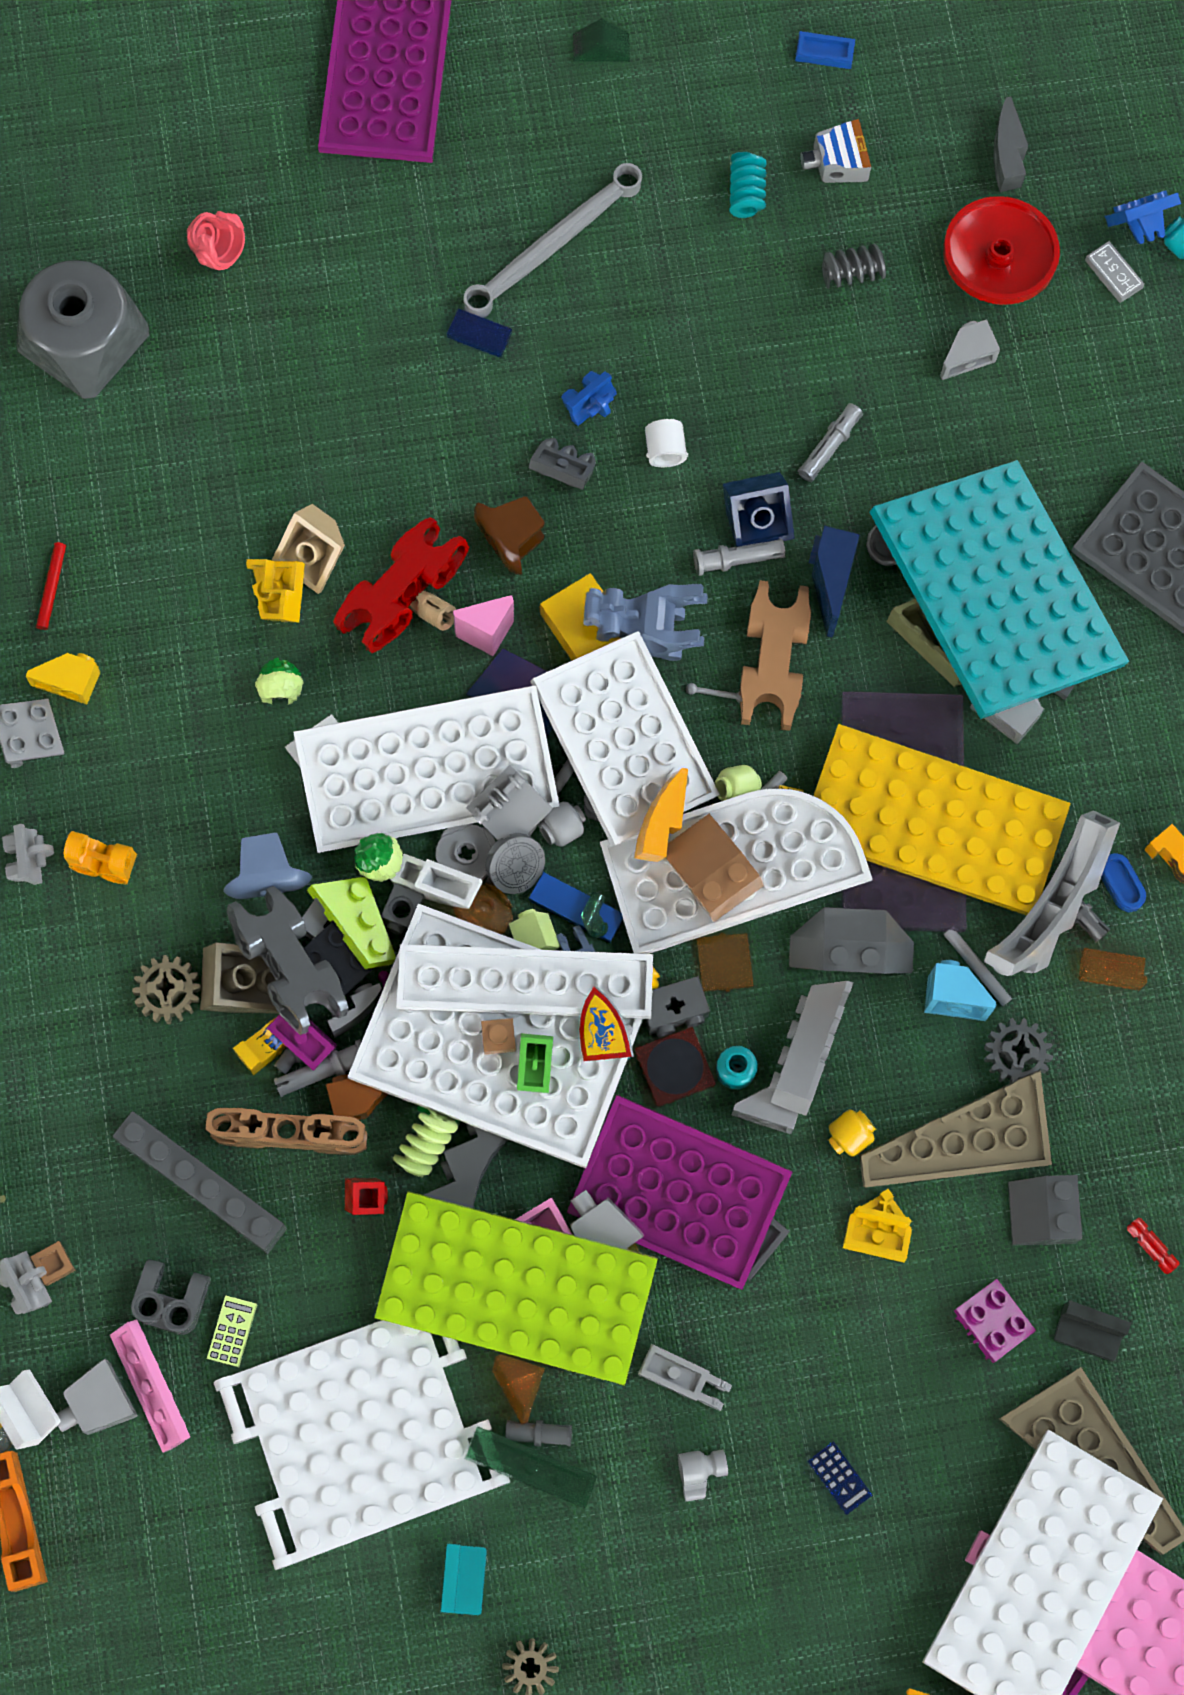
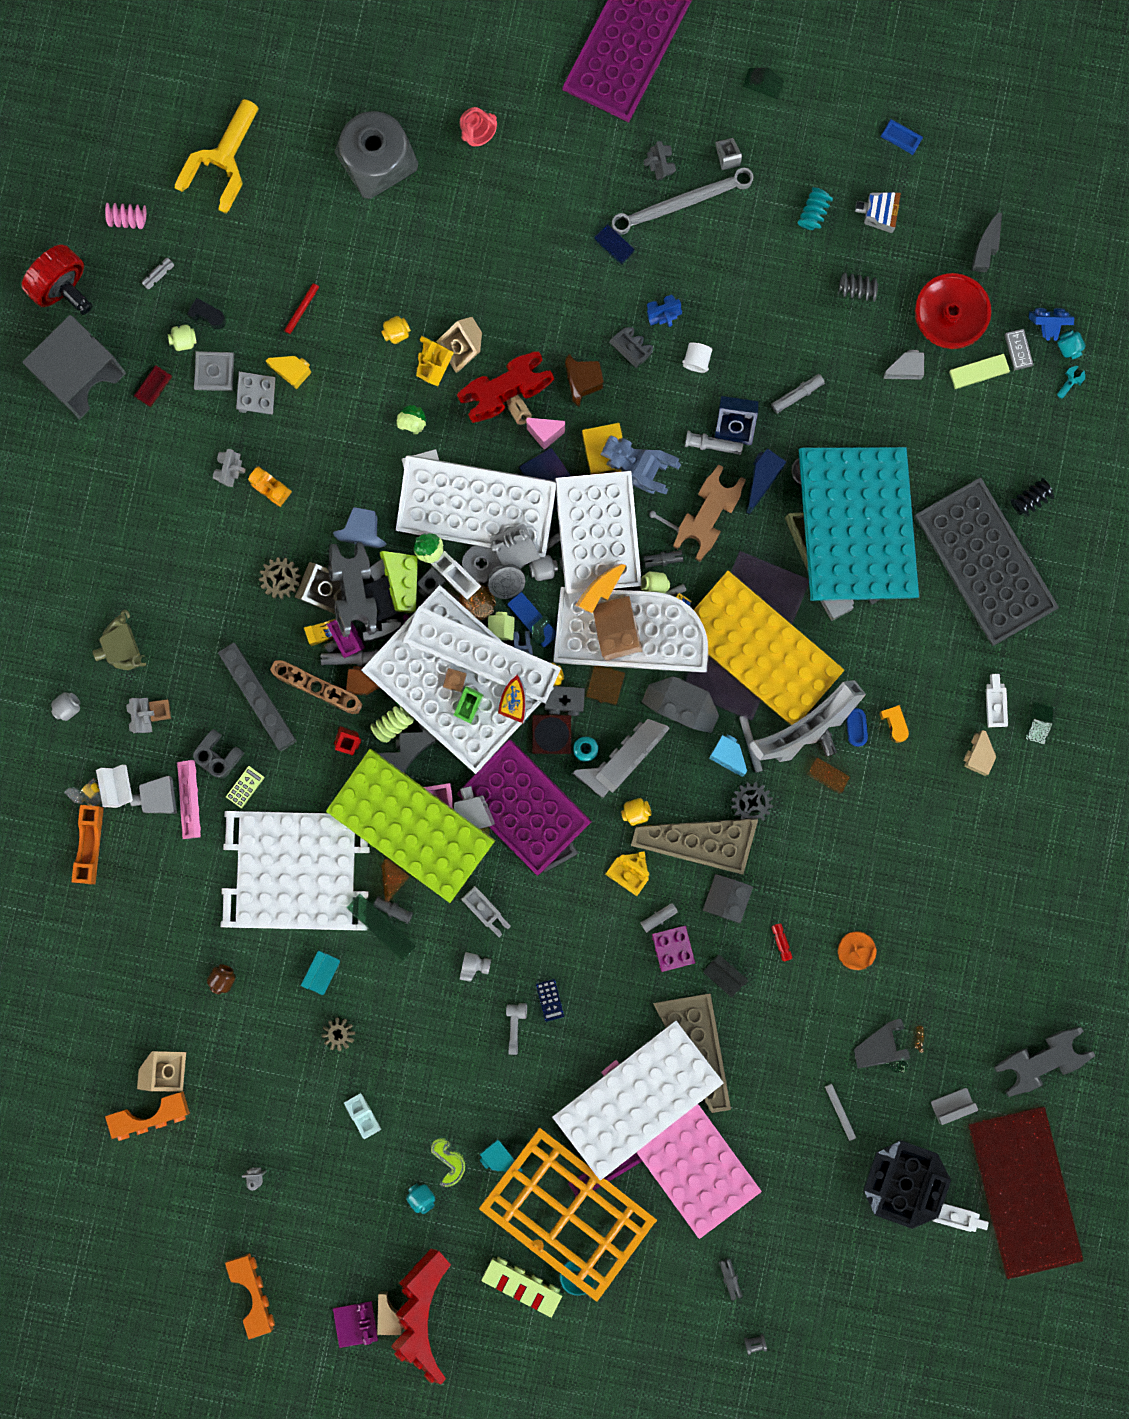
camera: 25 degrees right, 10 degrees up
(205, 563) = (396, 329): none -> yellow head
(308, 1654) = (221, 979): none -> reddish brown head
(496, 198) = (657, 160): none -> dark grey hips
(593, 155) = (728, 153): none -> light grey slope
(734, 745) = (663, 559): none -> dark grey pin
(795, 1519) = (516, 1012): none -> light grey brick
(952, 1281) = (659, 917): none -> light grey axle
(1073, 320) = (979, 371): none -> yellowish green tile

